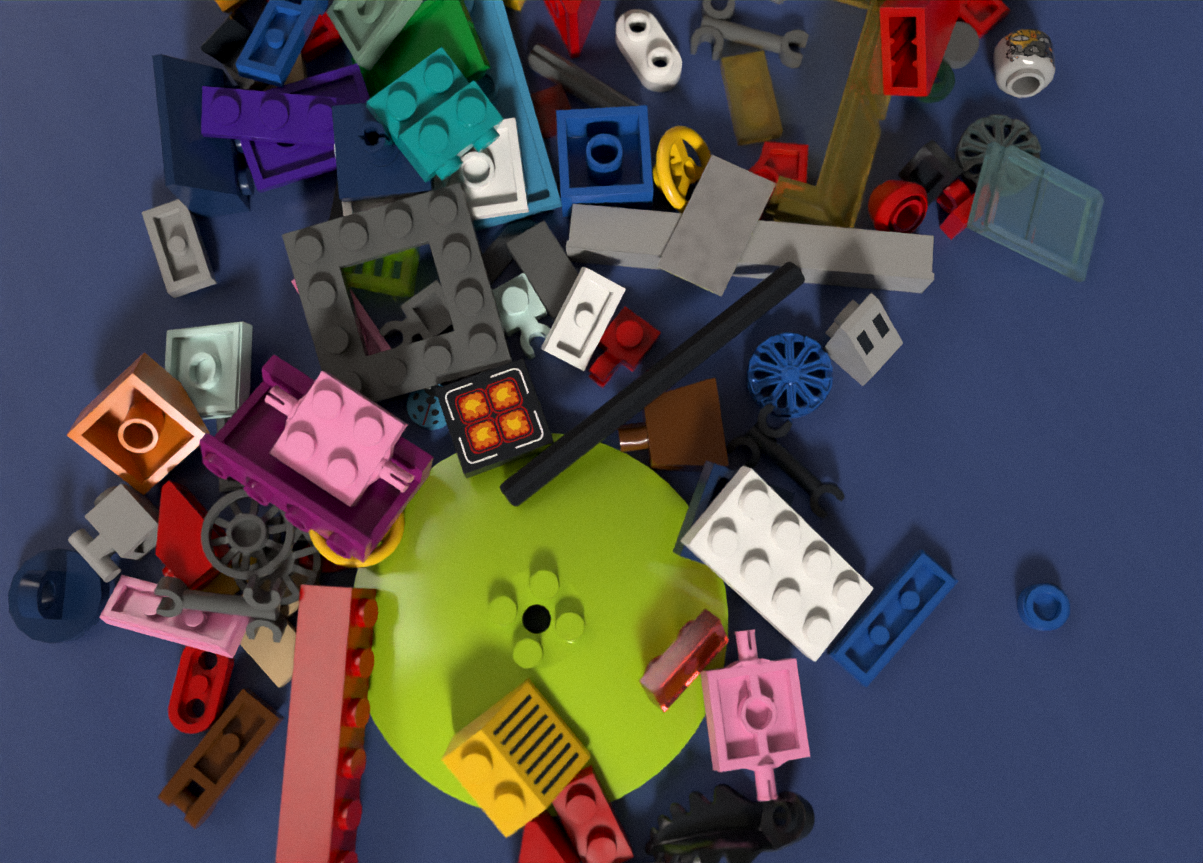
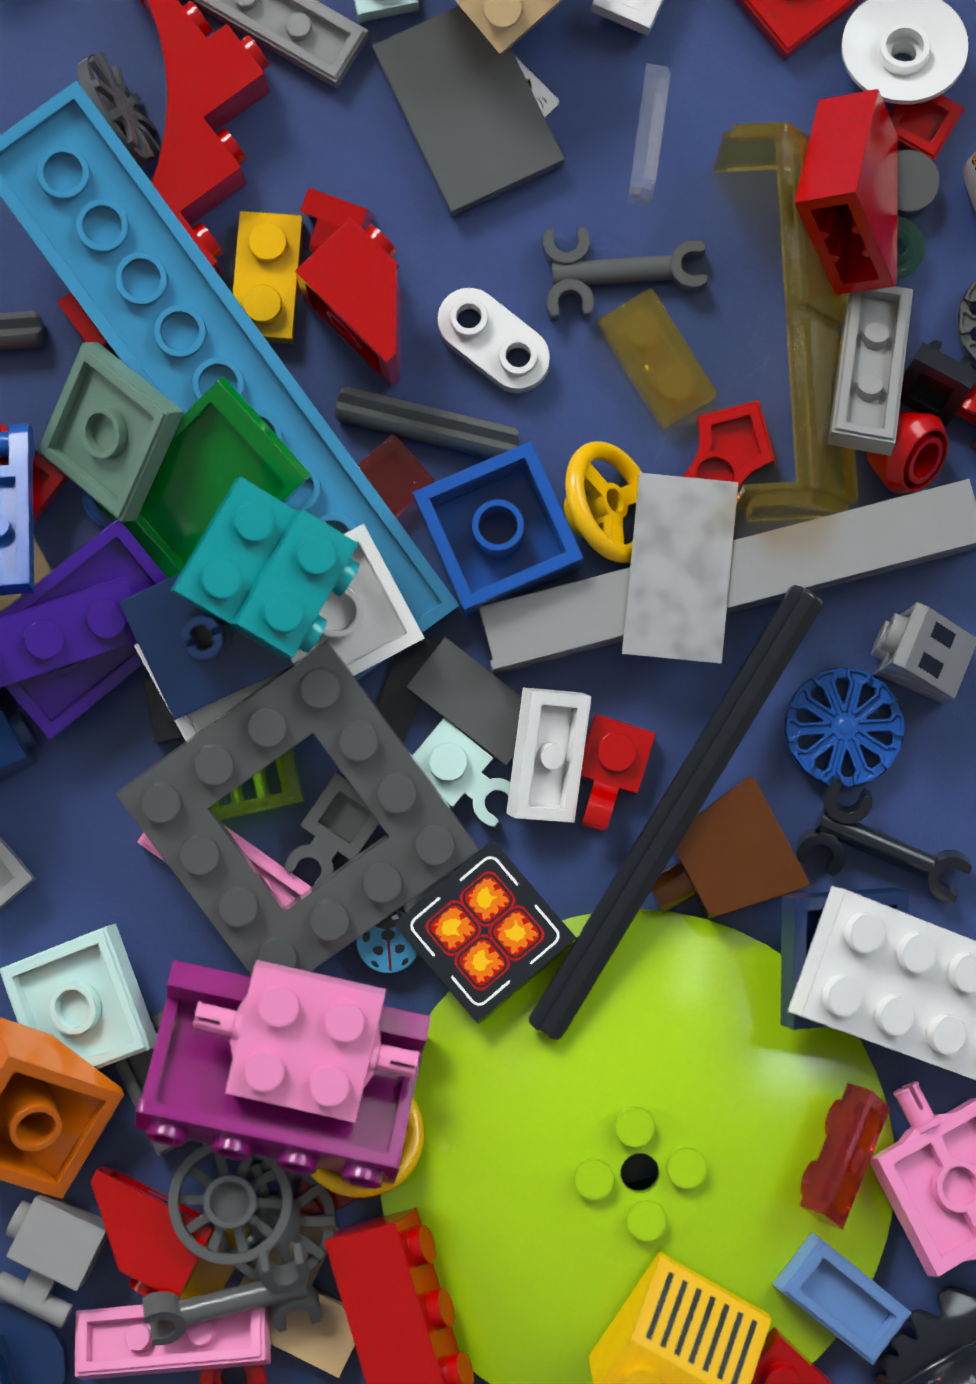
camera: 20 degrees left, 5 degrees up
(646, 762) = (842, 1298): none -> medium blue tile
(891, 145) = (870, 370): none -> light grey tile

